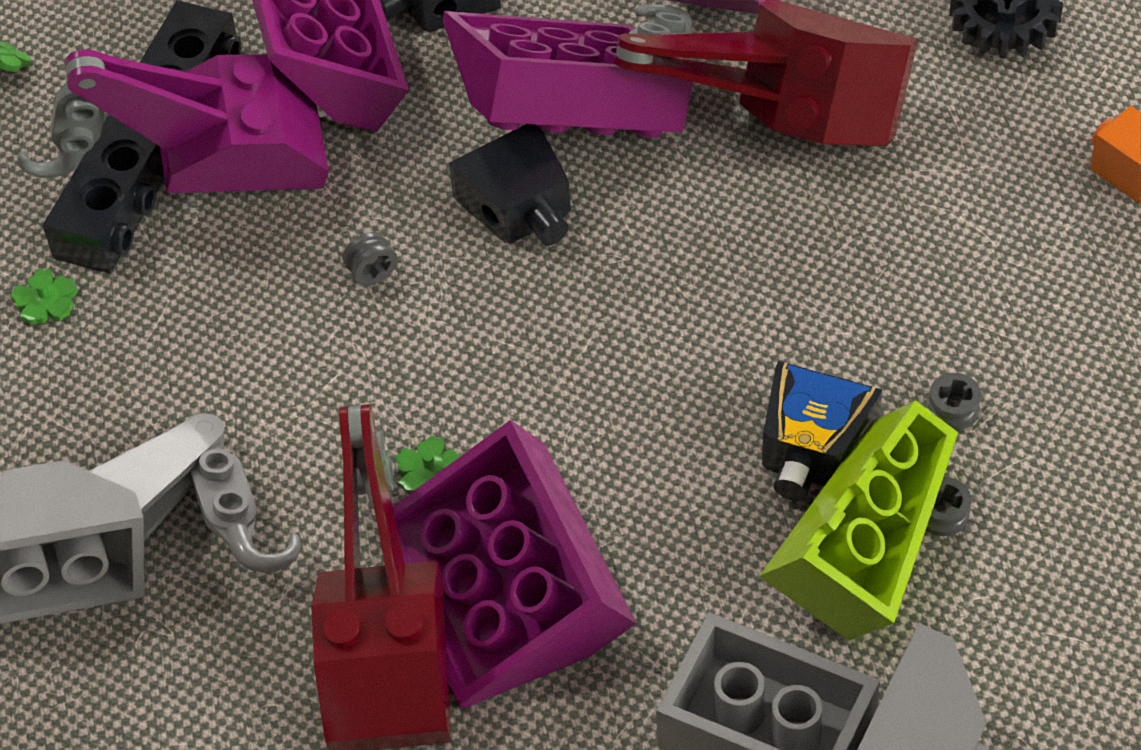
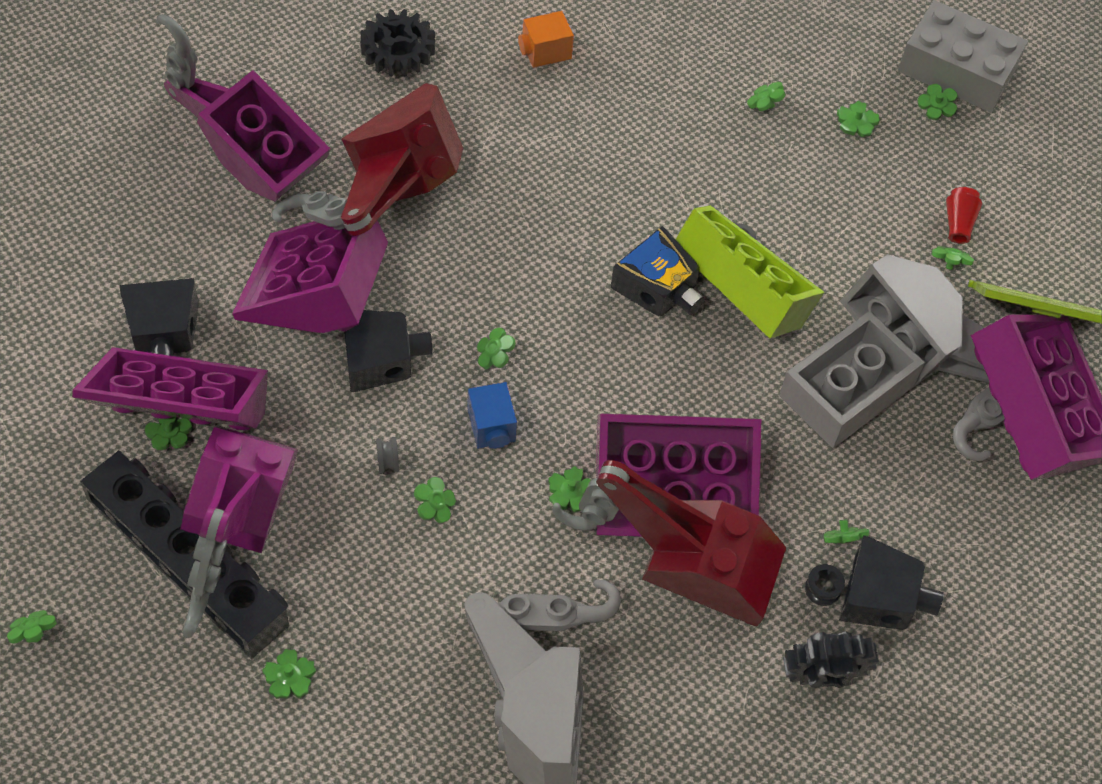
camera: 75 degrees left, 5 degrees up
(333, 331) = (435, 500): none -> bright green plant
(481, 335) = (492, 415): none -> blue brick
(589, 301) = (494, 349): none -> bright green plant
(955, 385) = (667, 194): dark grey bush -> none

